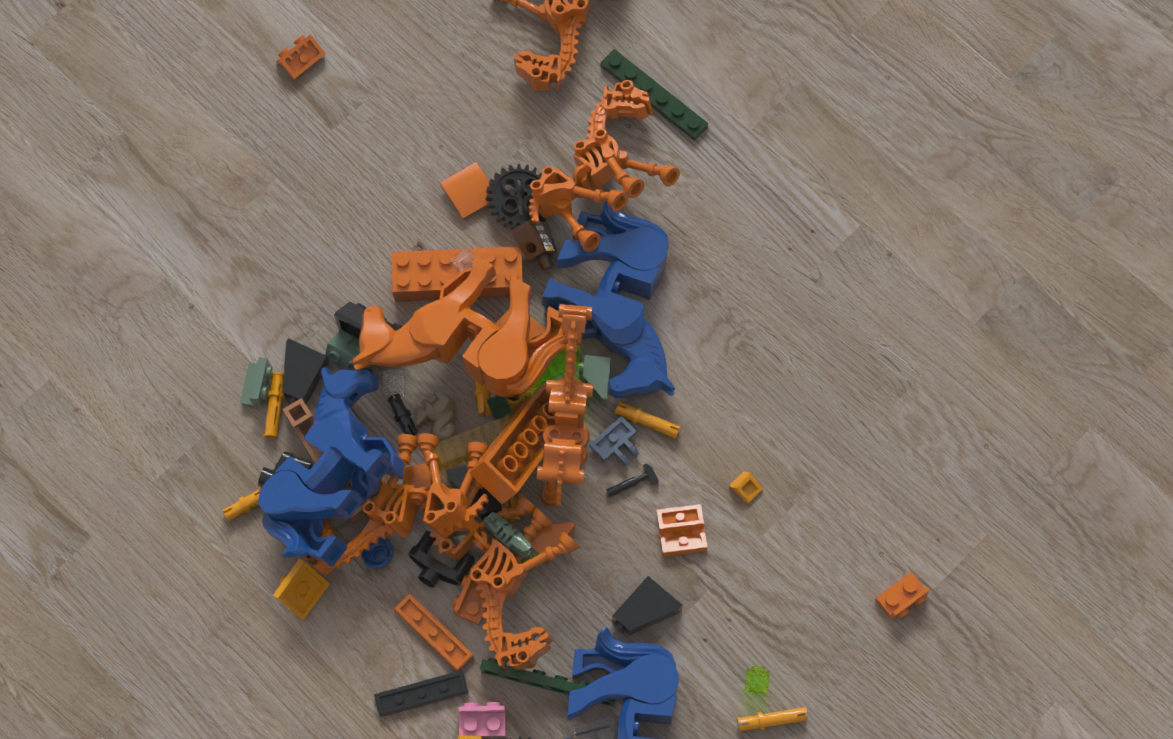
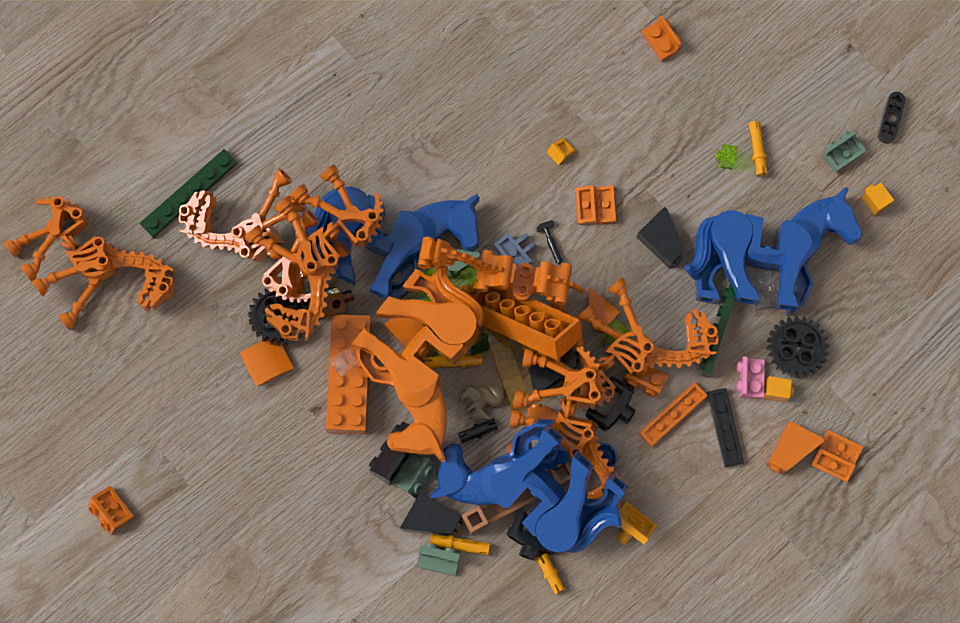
camera: 90 degrees left, 5 degrees up
(508, 535) = (604, 337): sand green hinge -> none
(574, 209) = (319, 270): none -> orange animal
(646, 419) = (494, 230): light orange pin -> none

